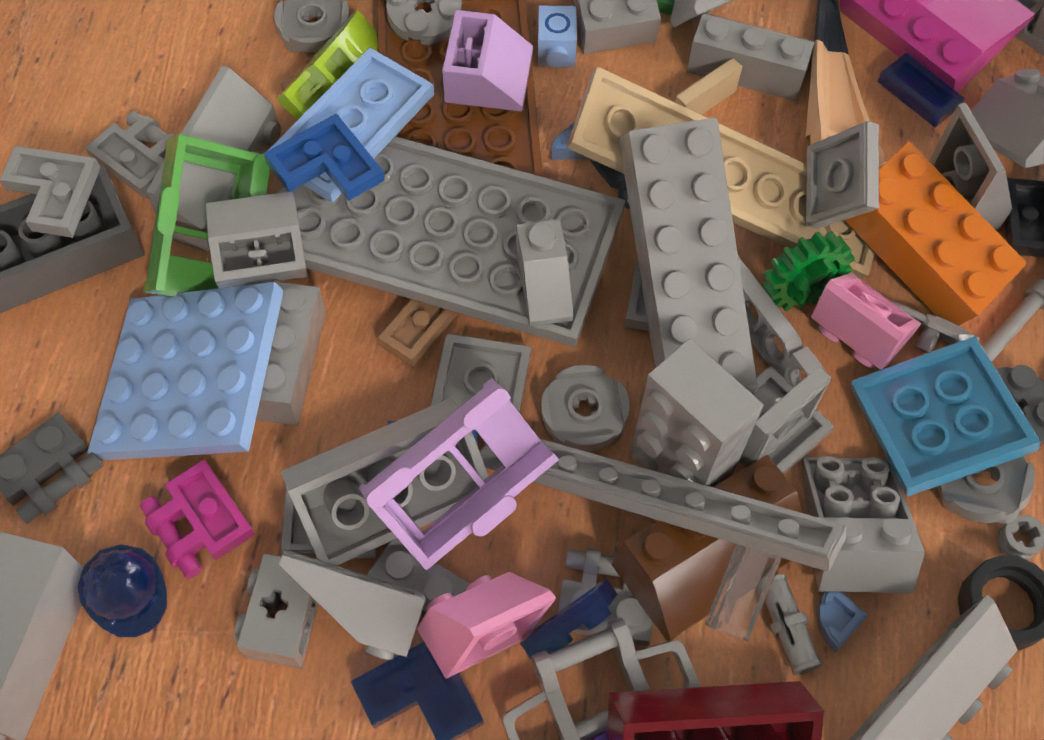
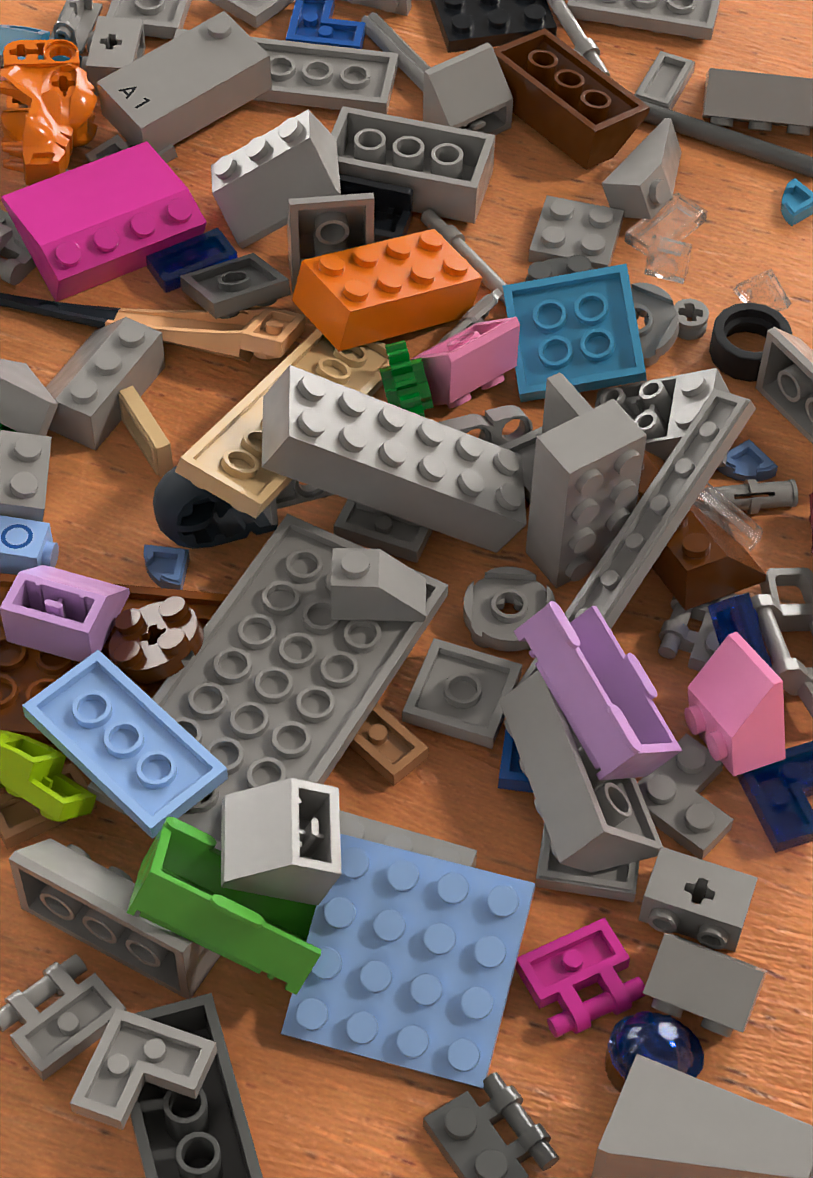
camera: 80 degrees left, 10 degrees down
(185, 623) = (705, 984): none -> light grey slope
(327, 149) = (180, 752): blue plate -> none
(366, 607) = (715, 802): light grey slope -> none
(468, 130) = (176, 635): none -> reddish brown plate
(843, 176) = (331, 318): light grey plate -> none
(898, 119) = (235, 286): none -> dark grey plate

